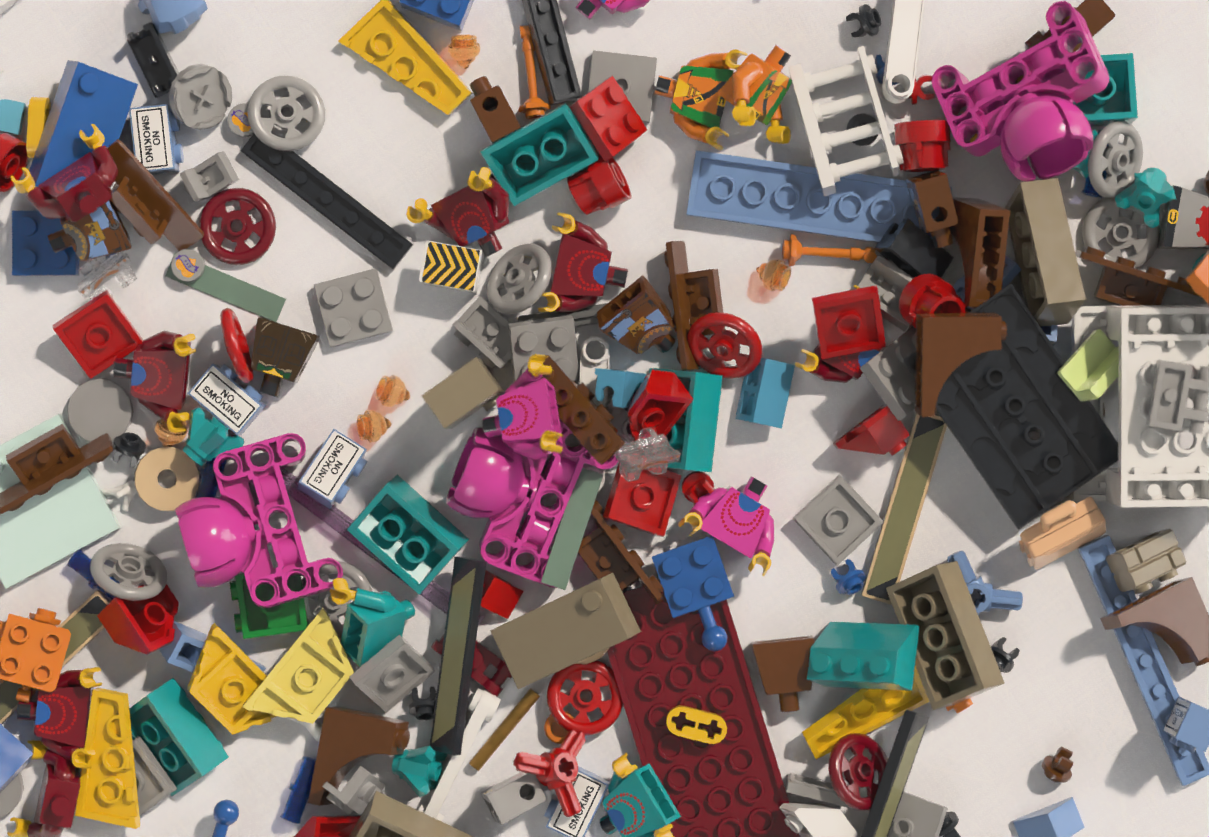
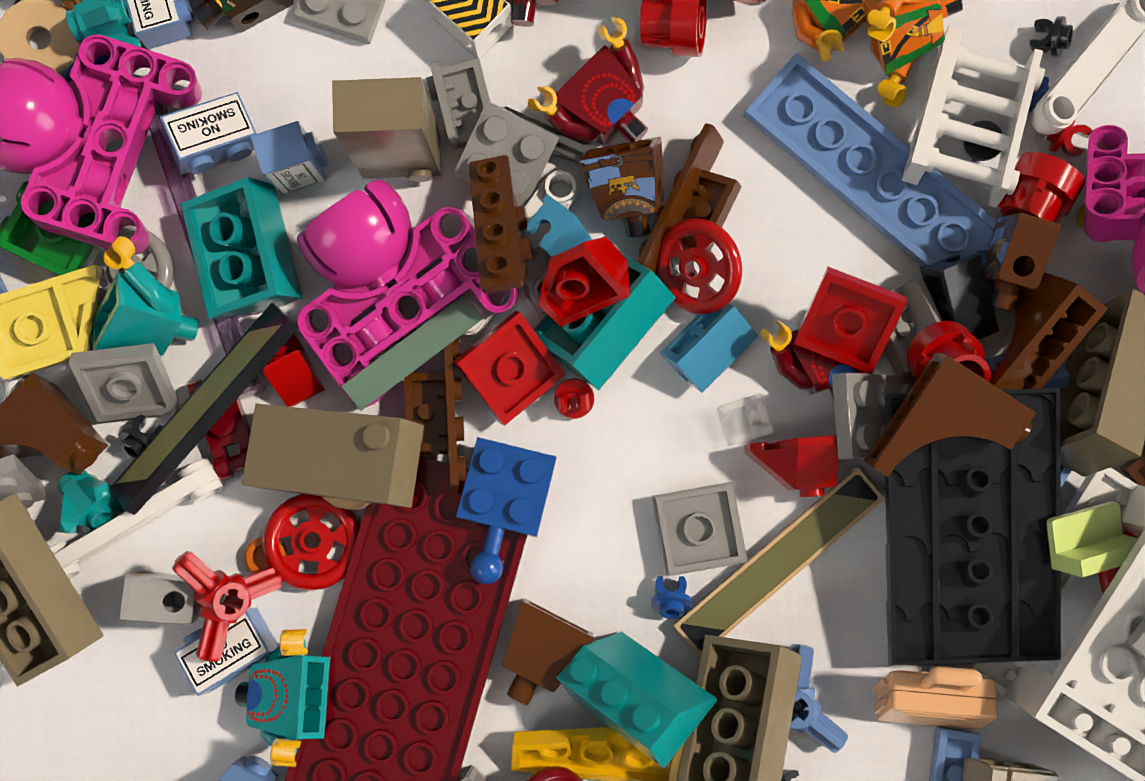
camera: 30 degrees right, 5 degrees down
(372, 426) = (281, 114): clear orange plate -> none
(391, 391) = (321, 99): clear orange plate -> none
(401, 450) = (290, 157): none -> medium blue brick
(504, 729) = (206, 520): pearl gold bar -> none
(519, 279) = (529, 62): light grey plate -> none
(528, 413) = (443, 189): dark pink torso -> none
(648, 452) = (541, 317): clear hips -> none
(694, 732) = (398, 655): yellow beam -> none
(736, 521) = (592, 458): dark pink torso -> none
(774, 274) = (796, 231): clear orange plate -> none
(793, 250) = (832, 219): orange piece -> none
(821, 429) = (744, 419): none -> clear brick

